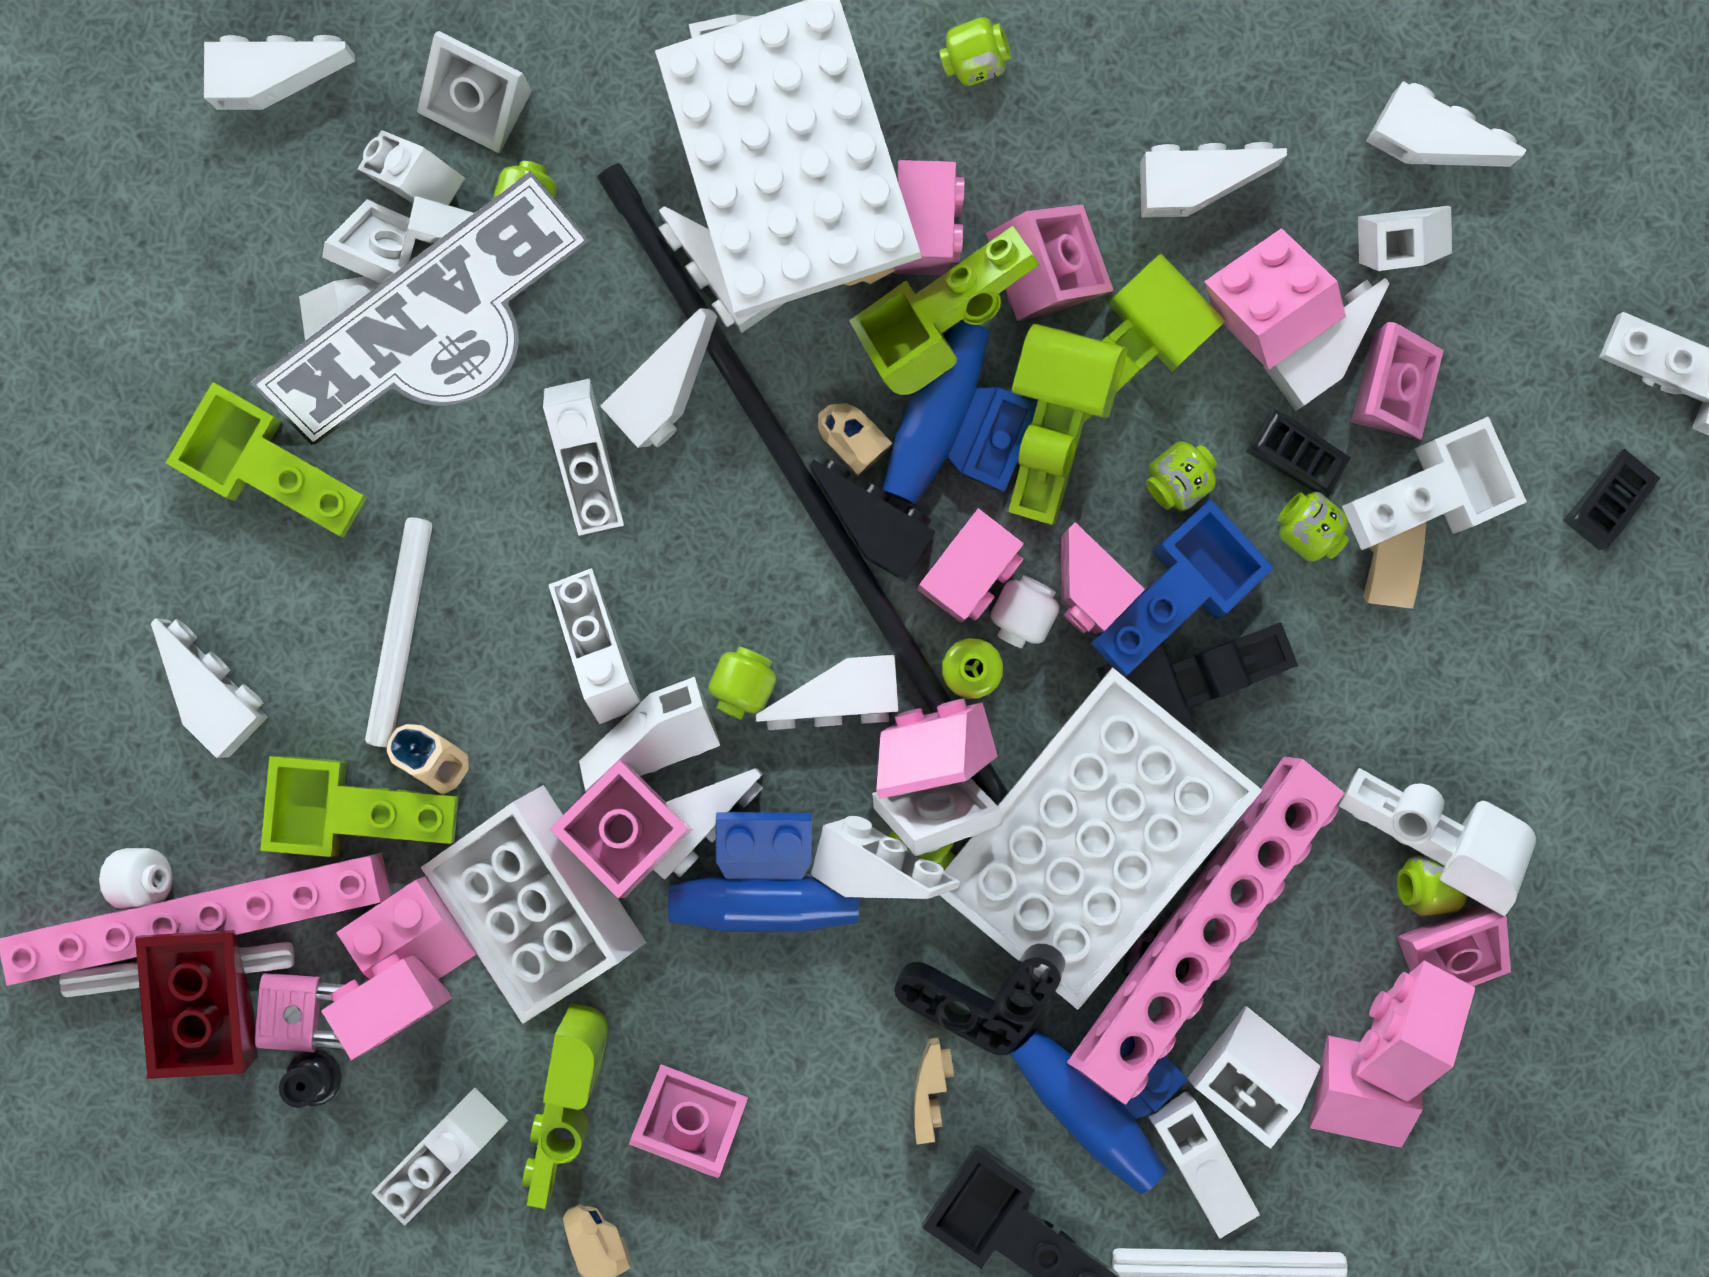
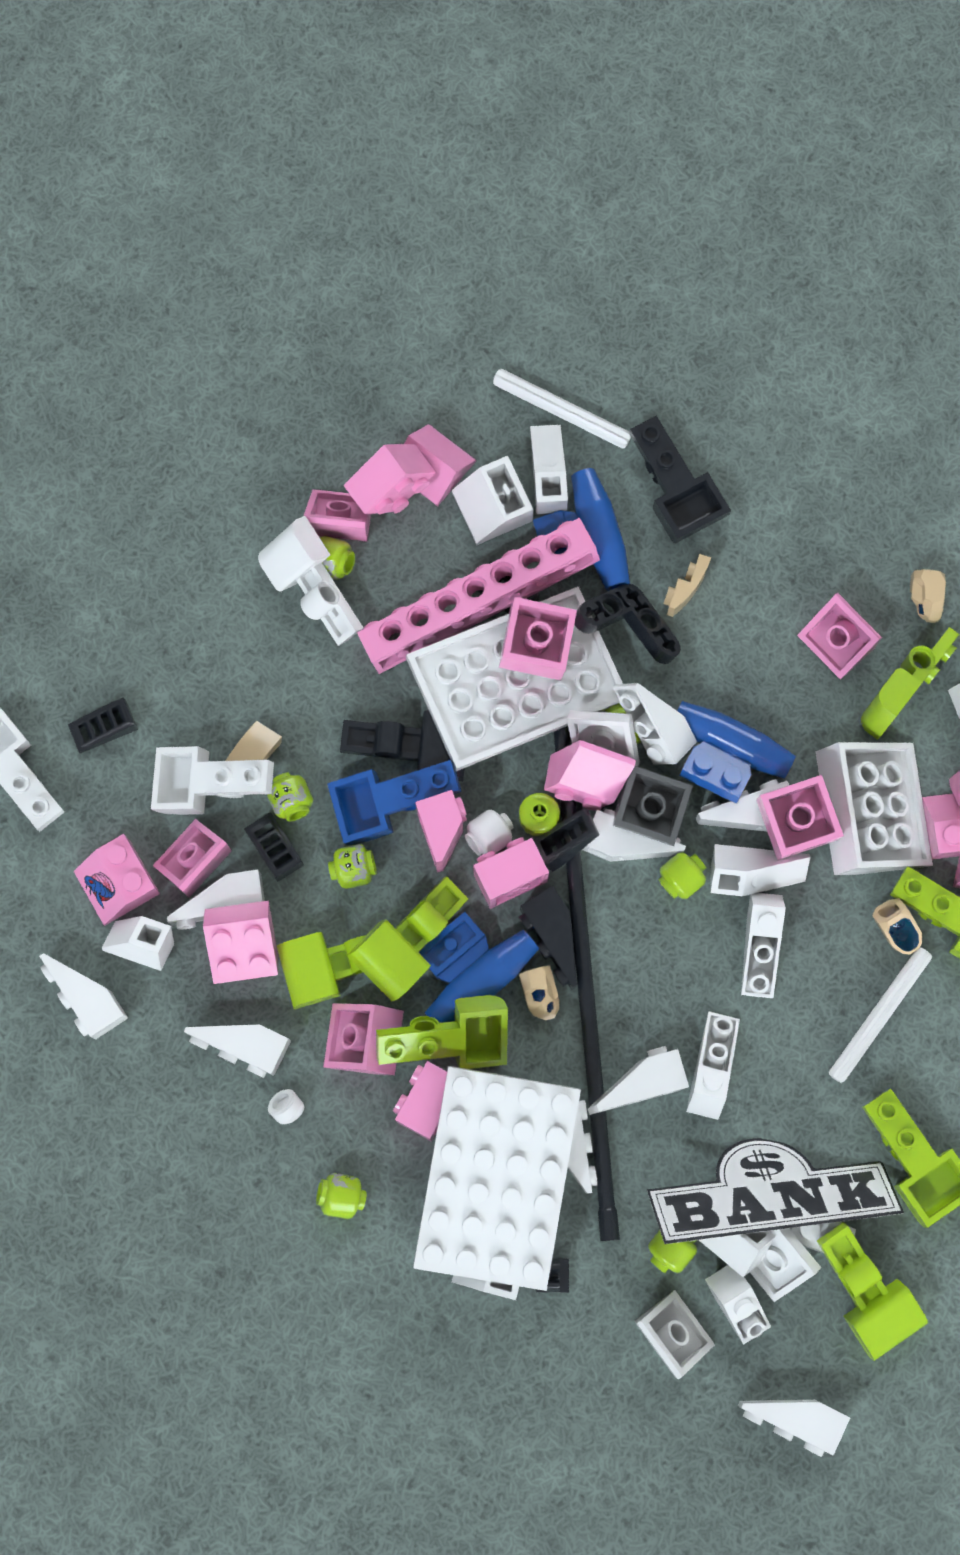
camera: 155 degrees left, 10 degrees down
(224, 248) = (882, 1312): none -> lime plate
(652, 95) = (558, 1276): none -> black tile
(827, 750) = (652, 805): none -> dark grey slope
(945, 634) = (564, 853): none -> black slope
(1095, 899) = (537, 638): none -> bright pink brick
(1104, 127) = (285, 1107): none -> white tile
(1480, 306) = (115, 879): none -> bright pink slope

